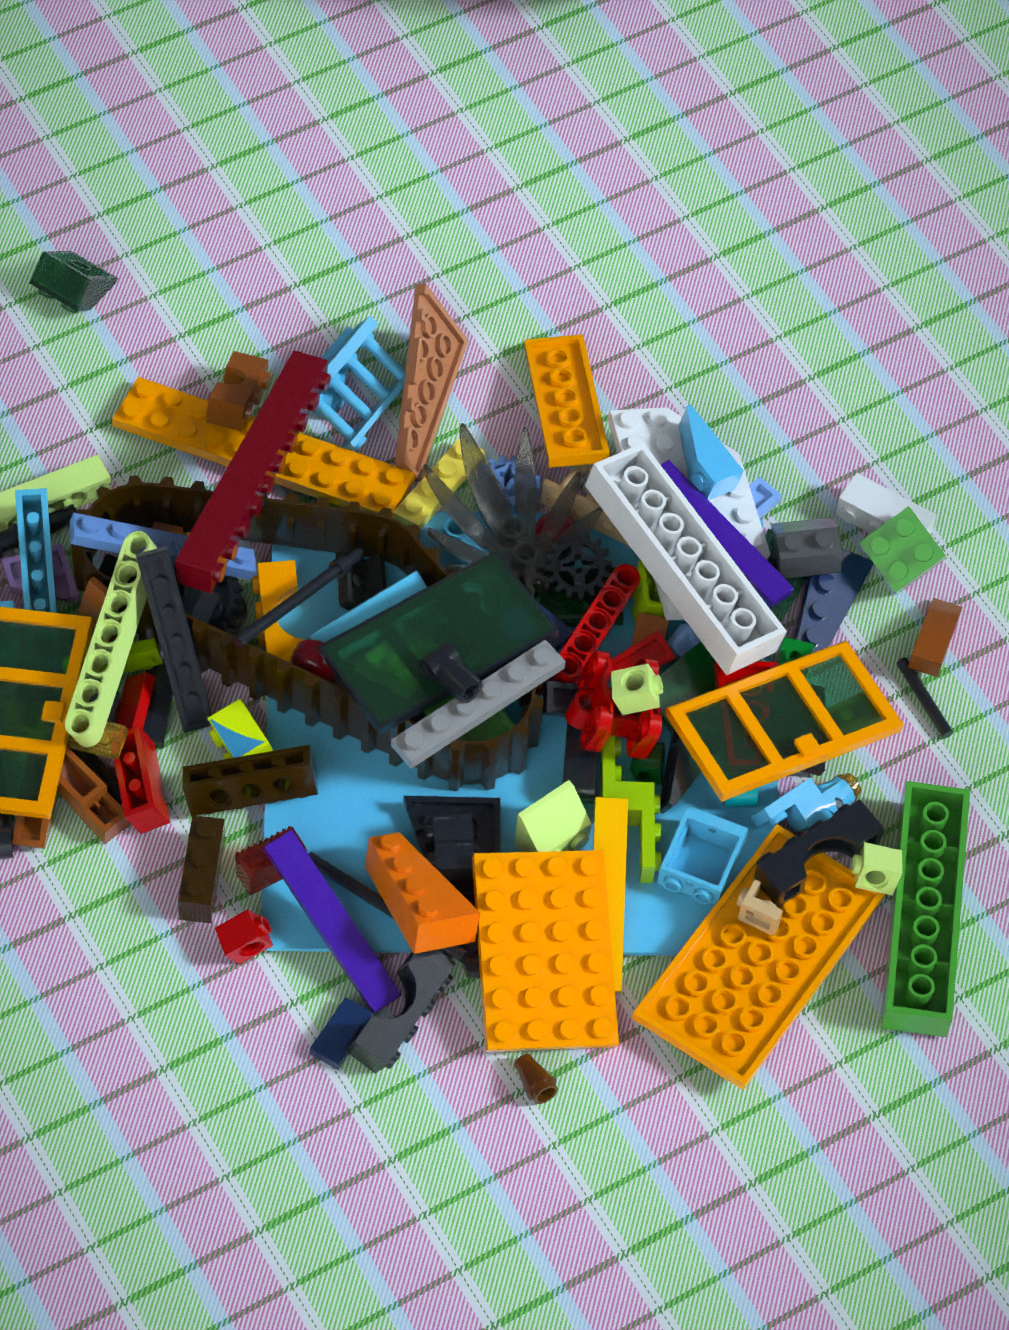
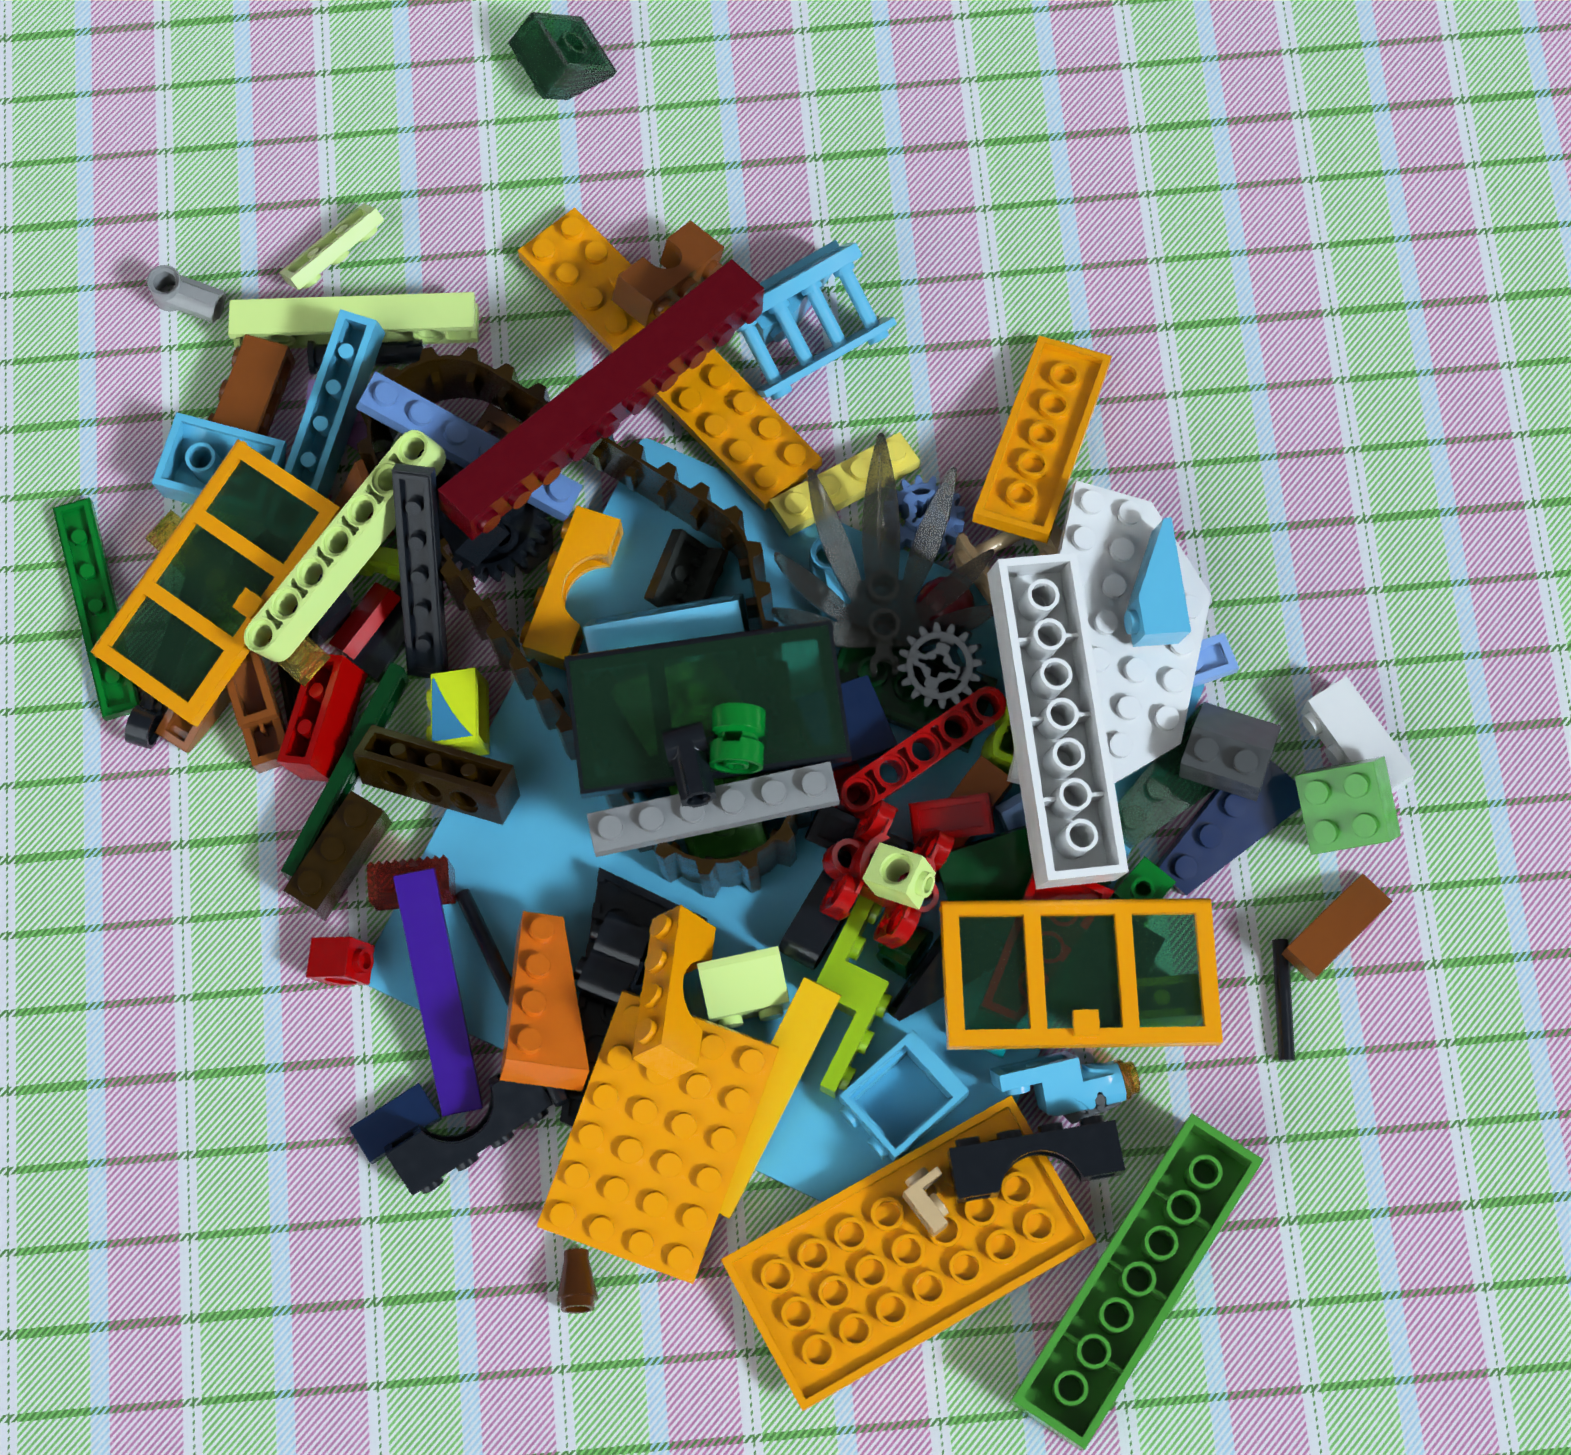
camera: 35 degrees right, 15 degrees up
(176, 817) = (346, 771): none -> dark green tile
(307, 657) = (552, 661): dark red hair -> none
(337, 569) = (657, 554): black bar -> none
(431, 369) = (905, 331): nougat wing -> none
(476, 642) = (737, 742): none -> green wheel
(519, 854) = (665, 1031): none -> light orange arch
(758, 571) = (1127, 704): dark purple tile -> none
(877, 868) = (1096, 1212): yellowish green brick -> none

